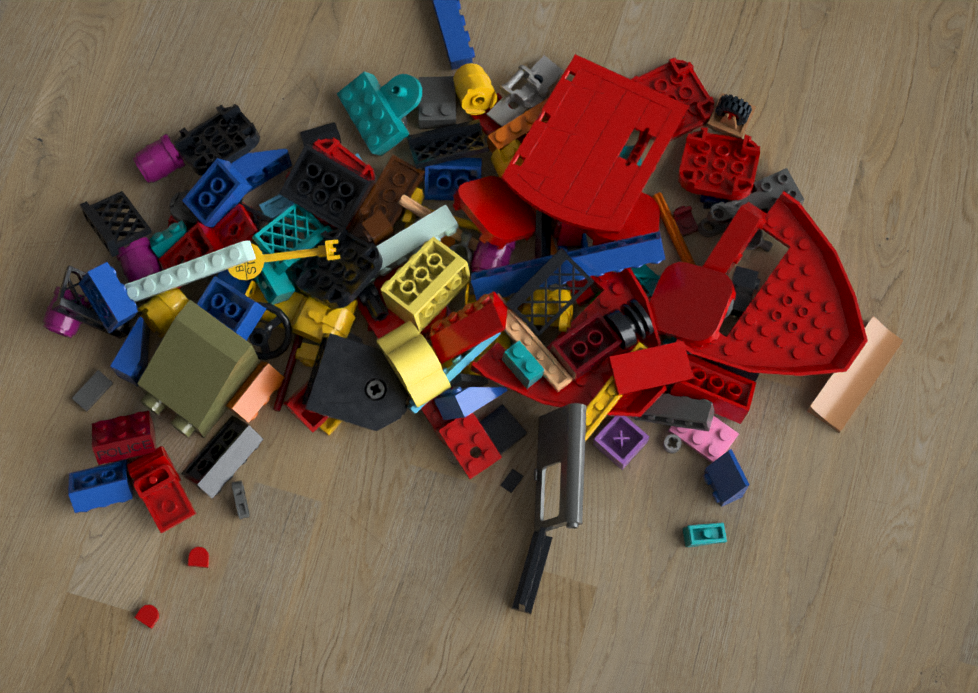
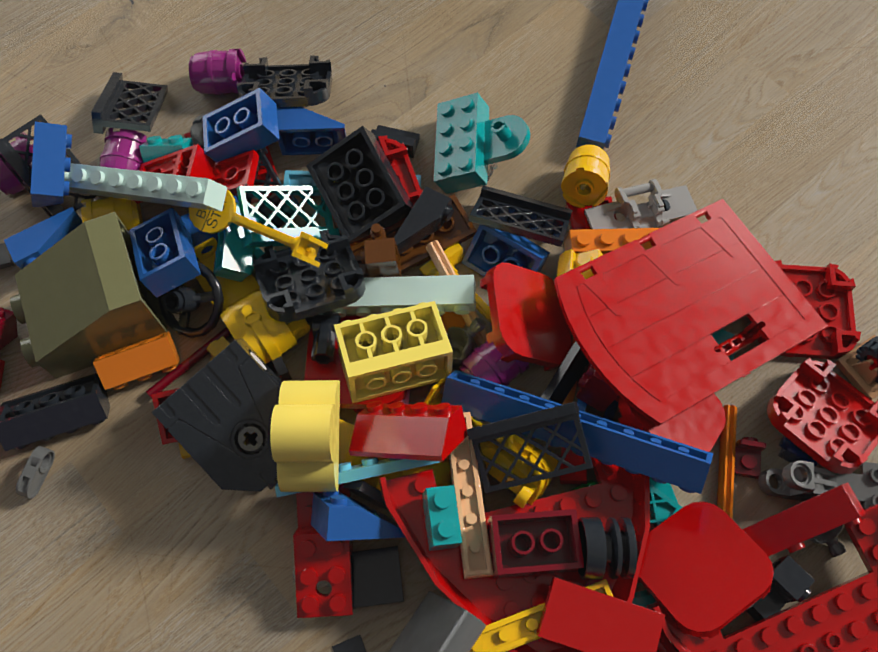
camera: 30 degrees right, 5 degrees down
(386, 183) = (424, 219): none -> black slope
(437, 103) = (537, 171): dark grey slope -> none

